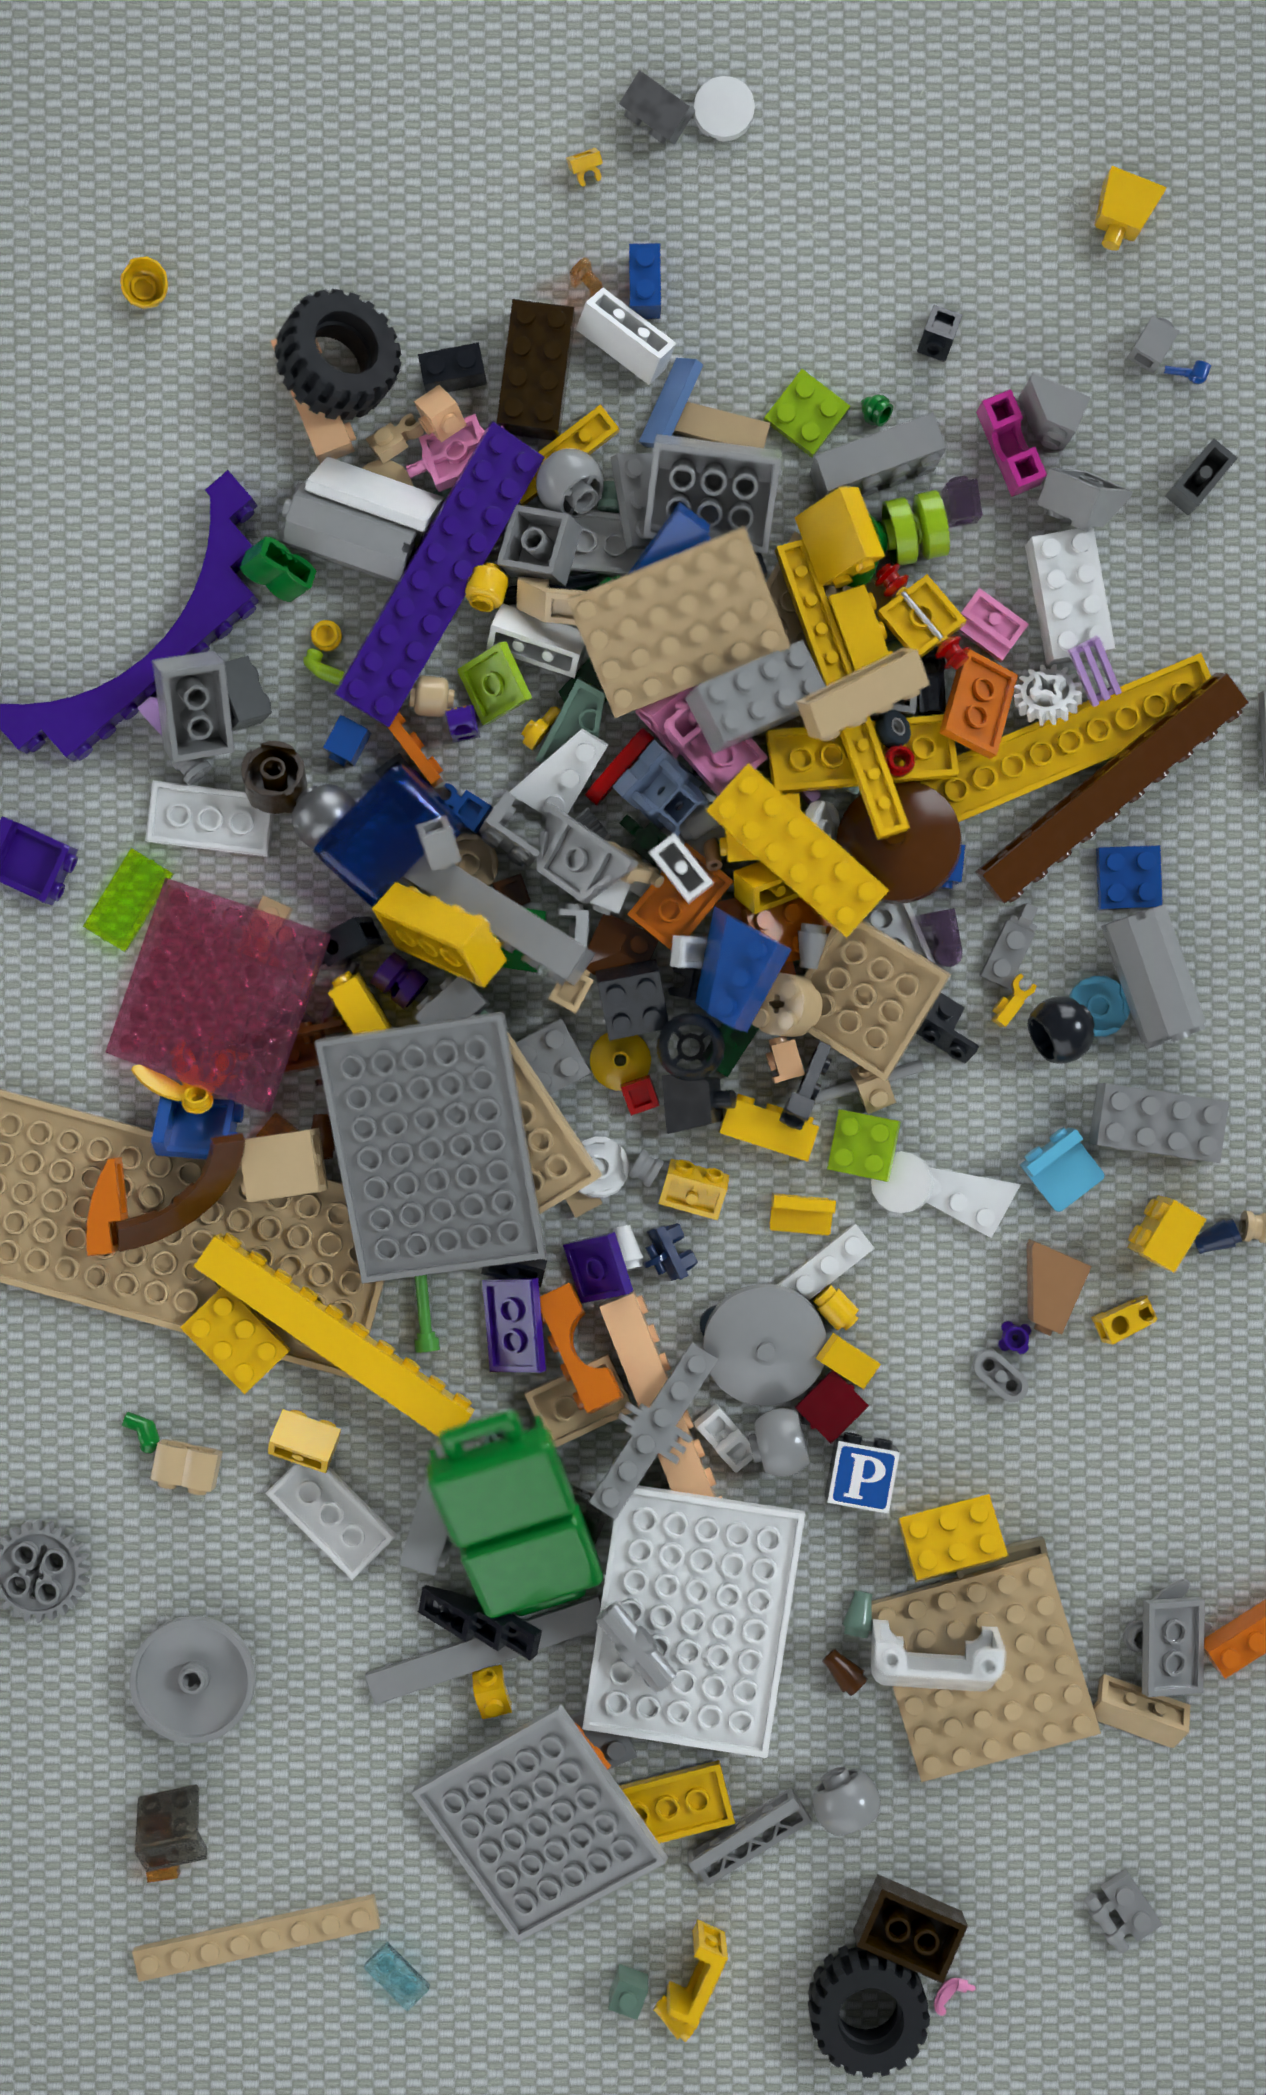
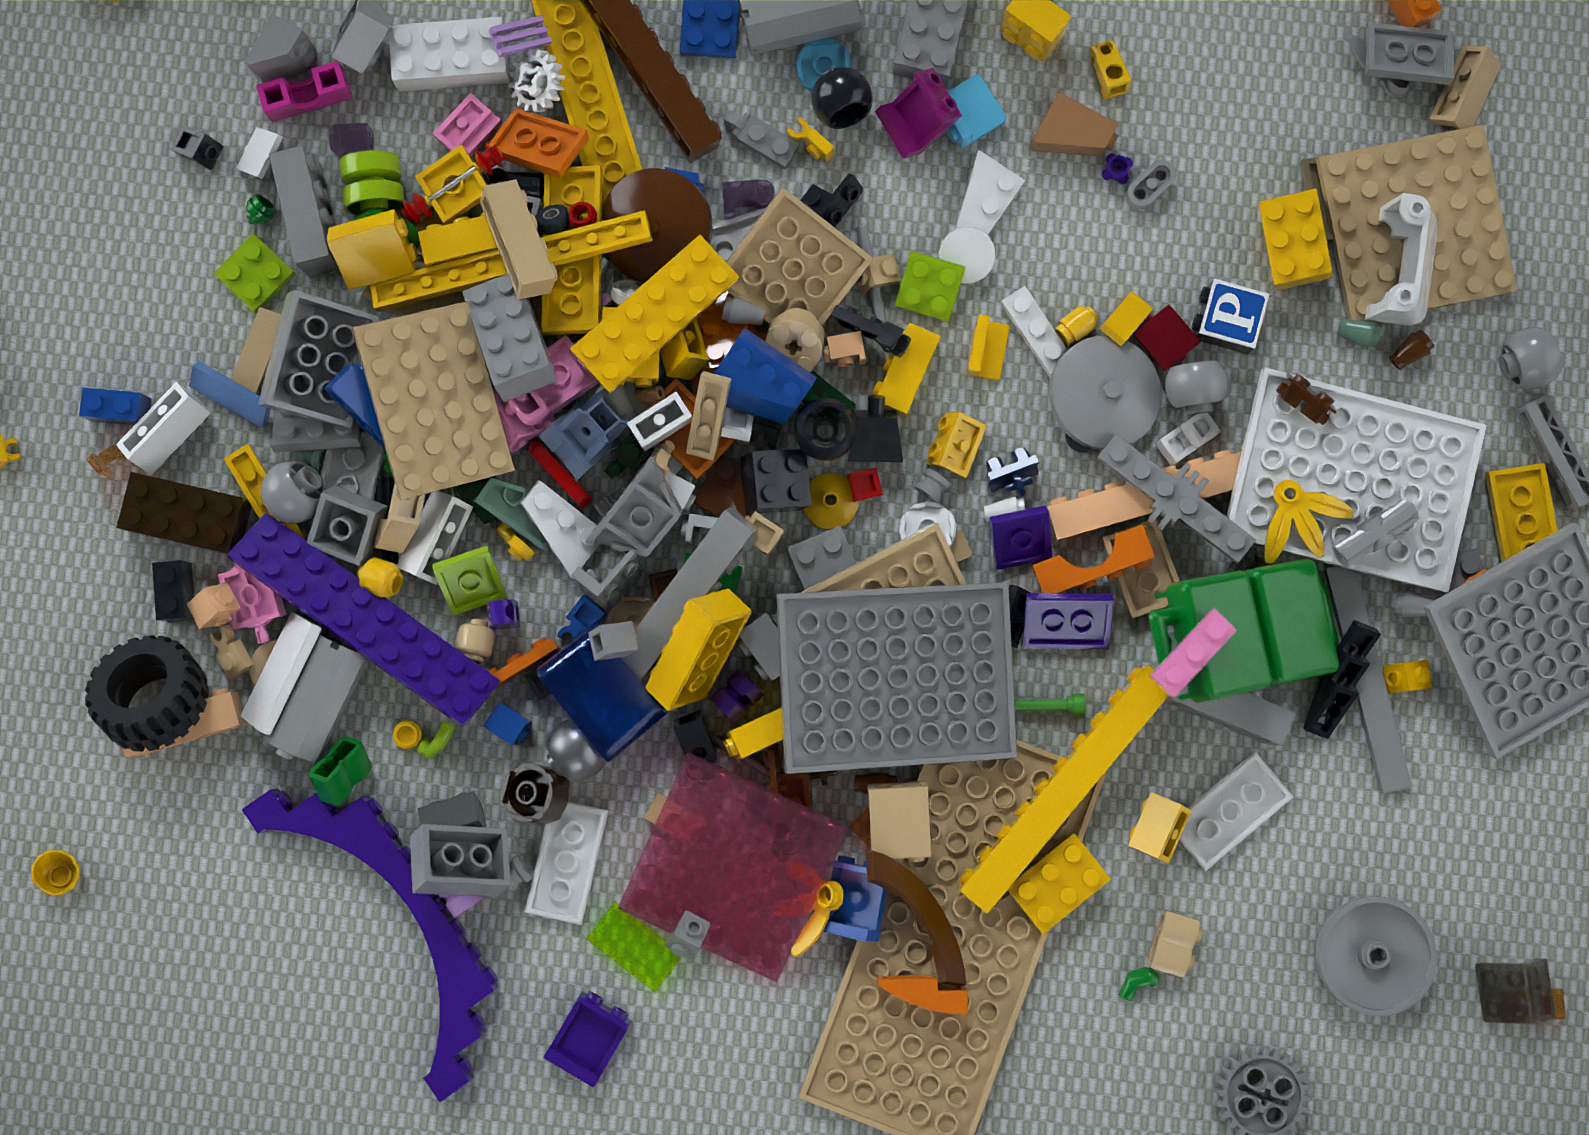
camera: 90 degrees left, 5 degrees down
(142, 954) = (688, 935): none -> light grey bracket
(473, 1460) = (1193, 653): none -> bright pink plate
(568, 1692) = (1411, 604): none -> light grey cone
(639, 1570) = (1304, 522): none -> yellow plant
(692, 919) = (708, 415): none -> tan plate
(768, 1573) = (1316, 404): none -> reddish brown hinge
(941, 400) = (256, 154): none -> white piece
(1050, 1115) = (919, 114): none -> magenta panel

